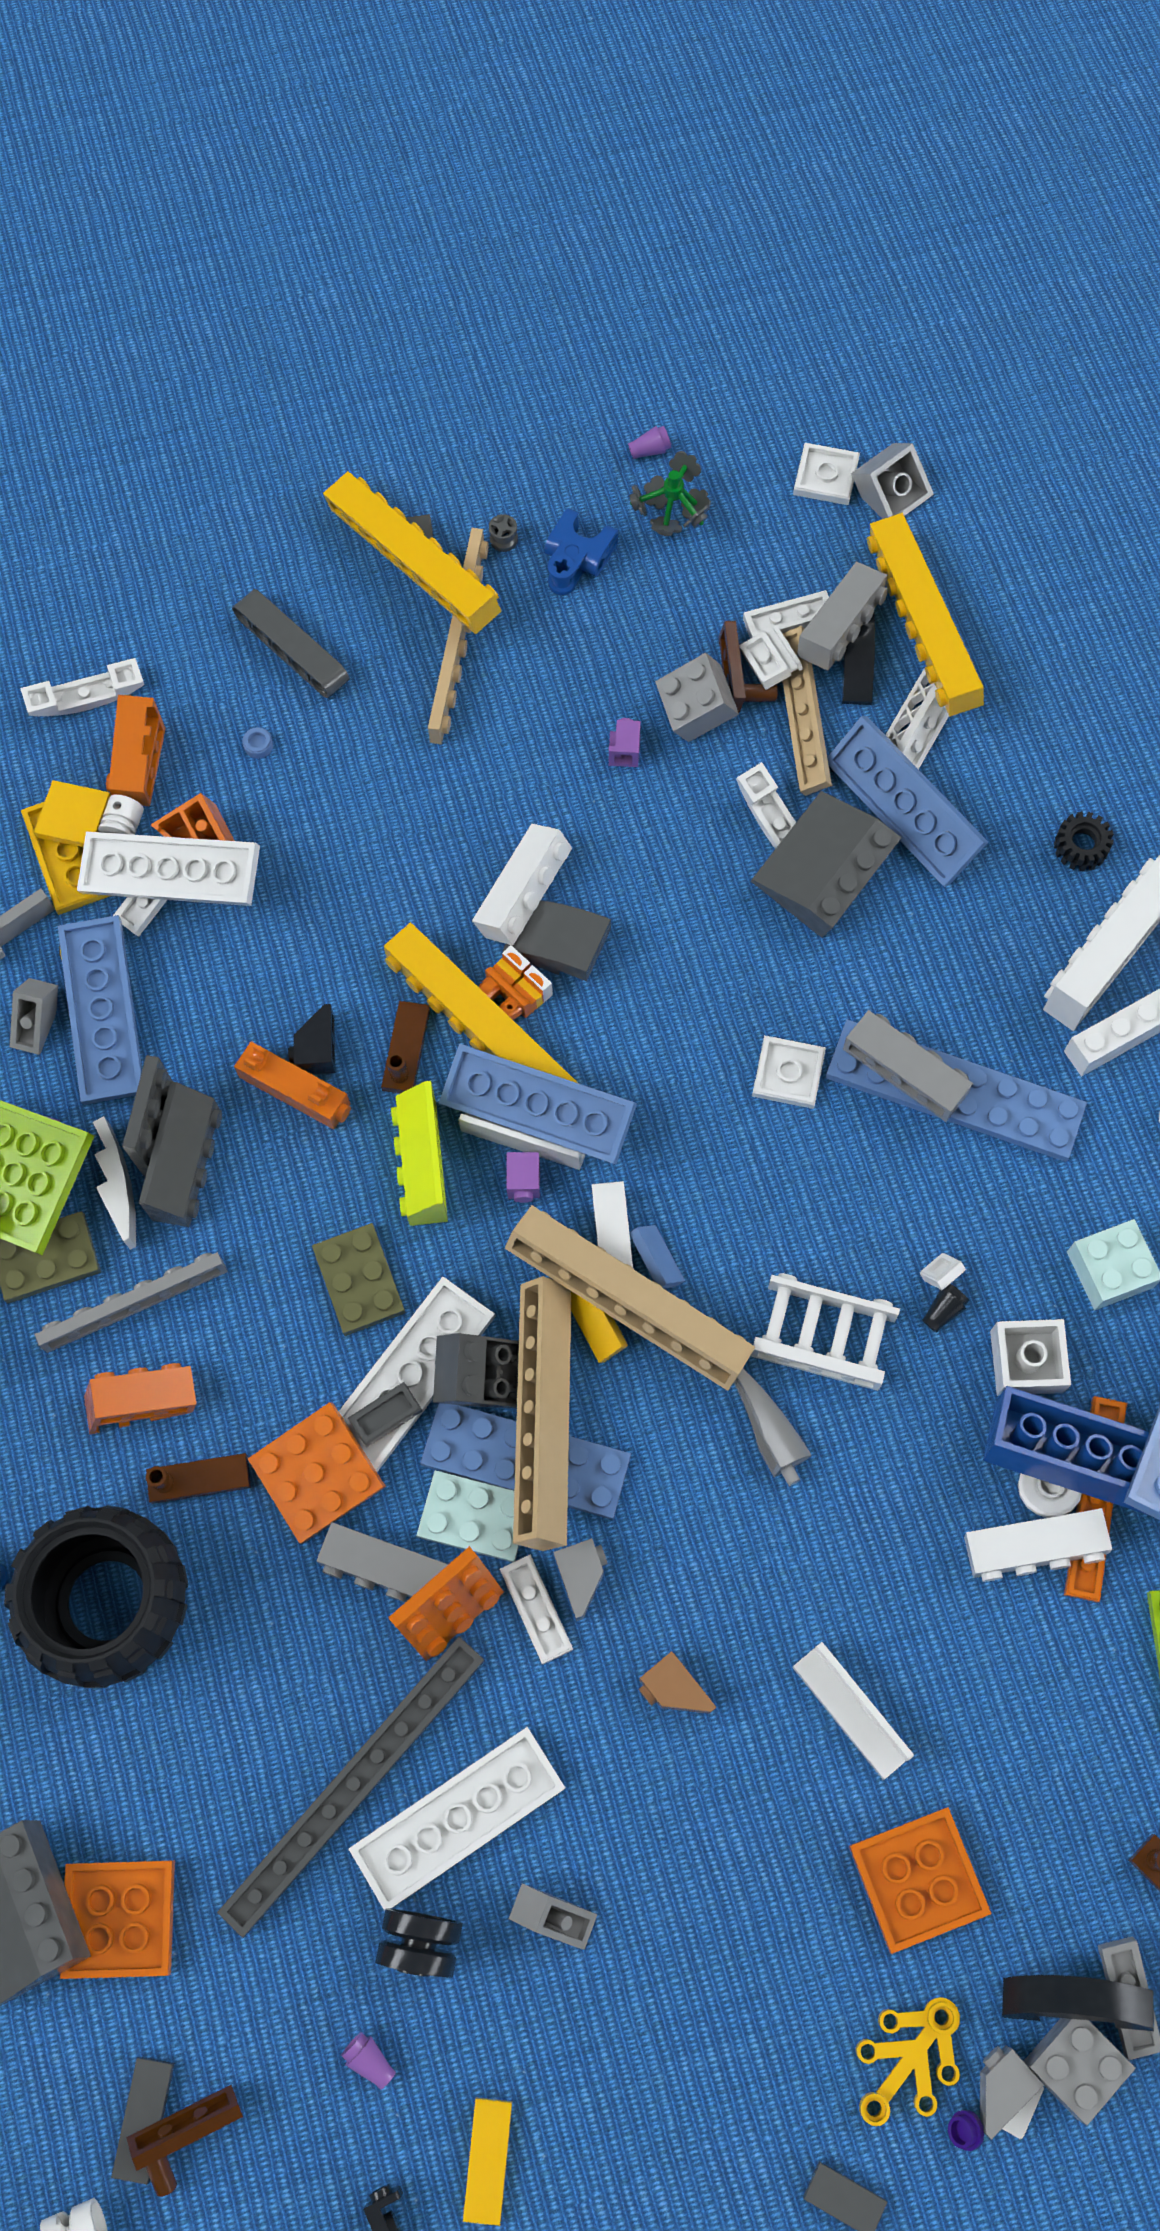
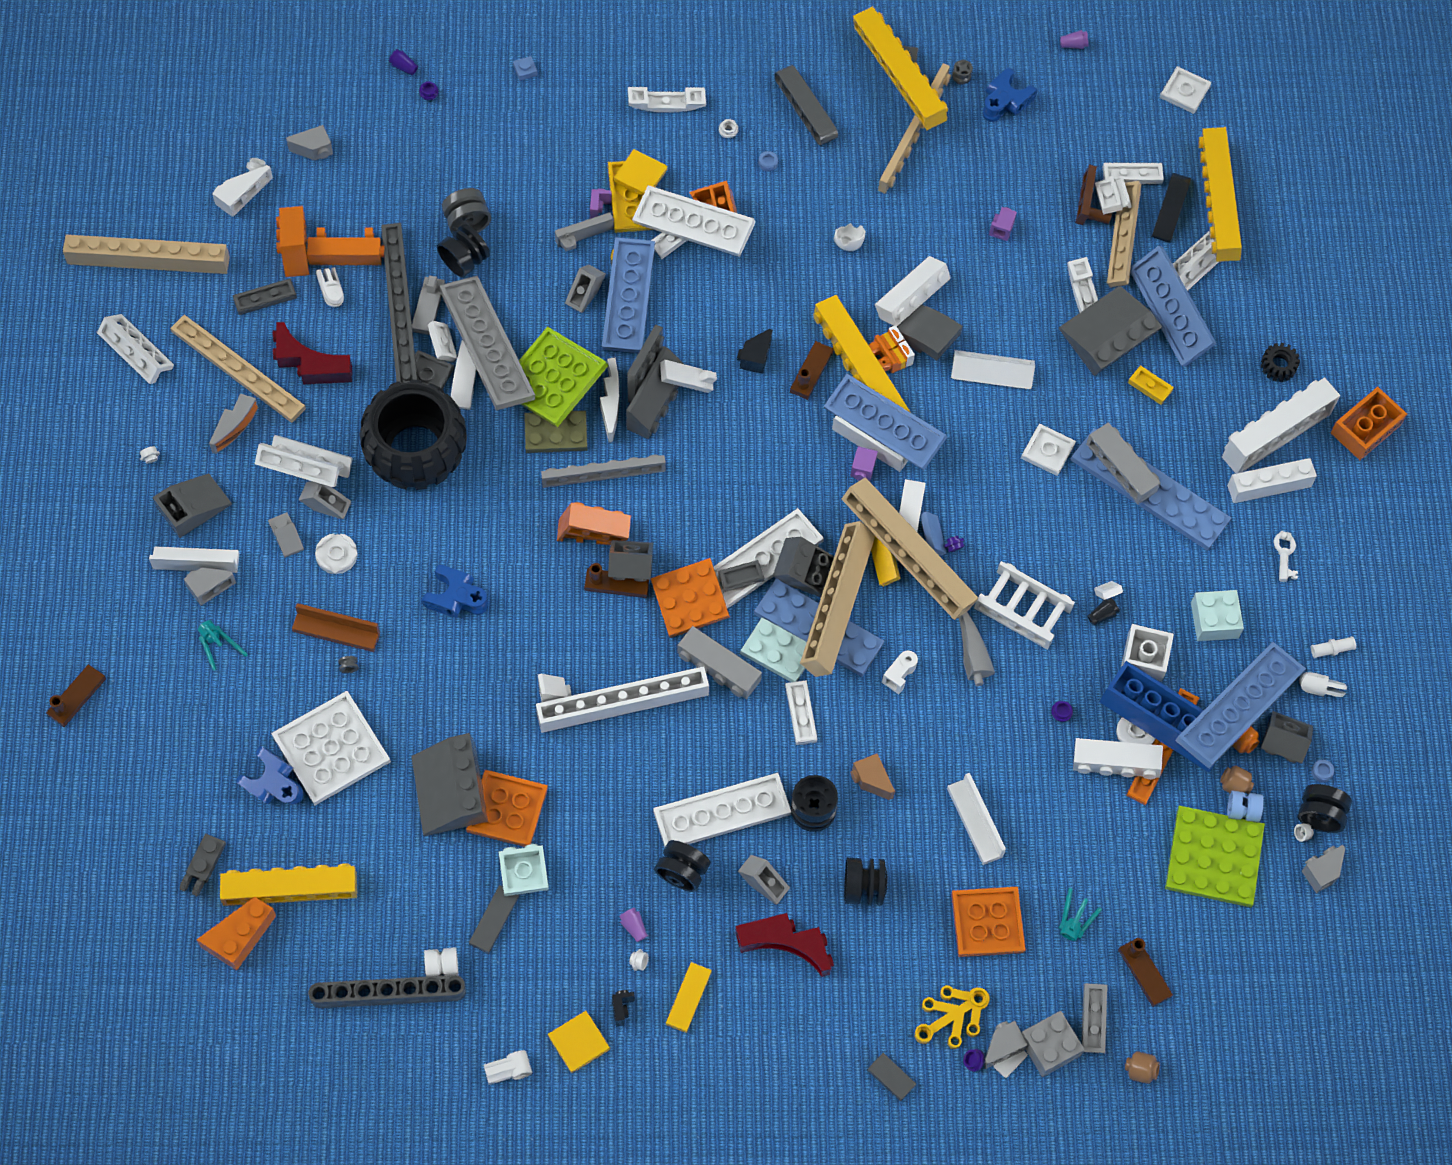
camera: 10 degrees right, 5 degrees down
(18, 874) = (598, 198): none -> medium lavender bracket
(45, 1580) = (539, 594): black tyre -> none
(122, 818) = (671, 184): white piece -> none
(135, 748) = (690, 144): orange wedge -> none
(141, 1697) = (552, 687): none -> white slope
(153, 2144) = (500, 927): reddish brown piece -> none
(168, 2024) = (523, 870): none -> light aqua plate
(186, 703) = (728, 124): none -> white plate
(207, 1441) = (630, 560): none -> dark grey brick
(219, 1115) = (687, 376): none -> white hinge
(251, 1679) = (622, 699): none -> white brick
(293, 1085) = (735, 372): orange brick -> none
(350, 1787) = (664, 776): dark grey plate -> none
(358, 1279) = (745, 497): olive plate -> none
(392, 2121) = (639, 960): none -> white plate
(407, 827) = (849, 237): none -> white hair
(420, 1156) = (803, 435): neon yellow slope -> none
(447, 1604) = (750, 687): orange plate -> none
(581, 1573) = (834, 698): light grey slope -> none
(593, 1745) = (814, 792): none -> black wheel
(599, 2007) = (778, 934): none -> dark red arch
(671, 1484) = (902, 666): none -> white leg
(672, 489) = (1074, 73): dark grey plant -> none
(673, 970) = (993, 369): none -> white panel
(693, 1264) = (954, 543): none -> dark purple plate
(696, 697) = (1057, 207): light grey brick -> none
(712, 1878) = (865, 881): none -> black wheel
(842, 616) = (1166, 181): light grey brick -> none
(893, 481) = (1227, 106): light grey slope -> none
(908, 929) = (1150, 385): none -> yellow plate
(929, 1487) = (1062, 711): none -> dark purple plate
(1051, 1850) = (1071, 929): none -> teal plant
(1078, 1998) = (1062, 1003): black slope -> none

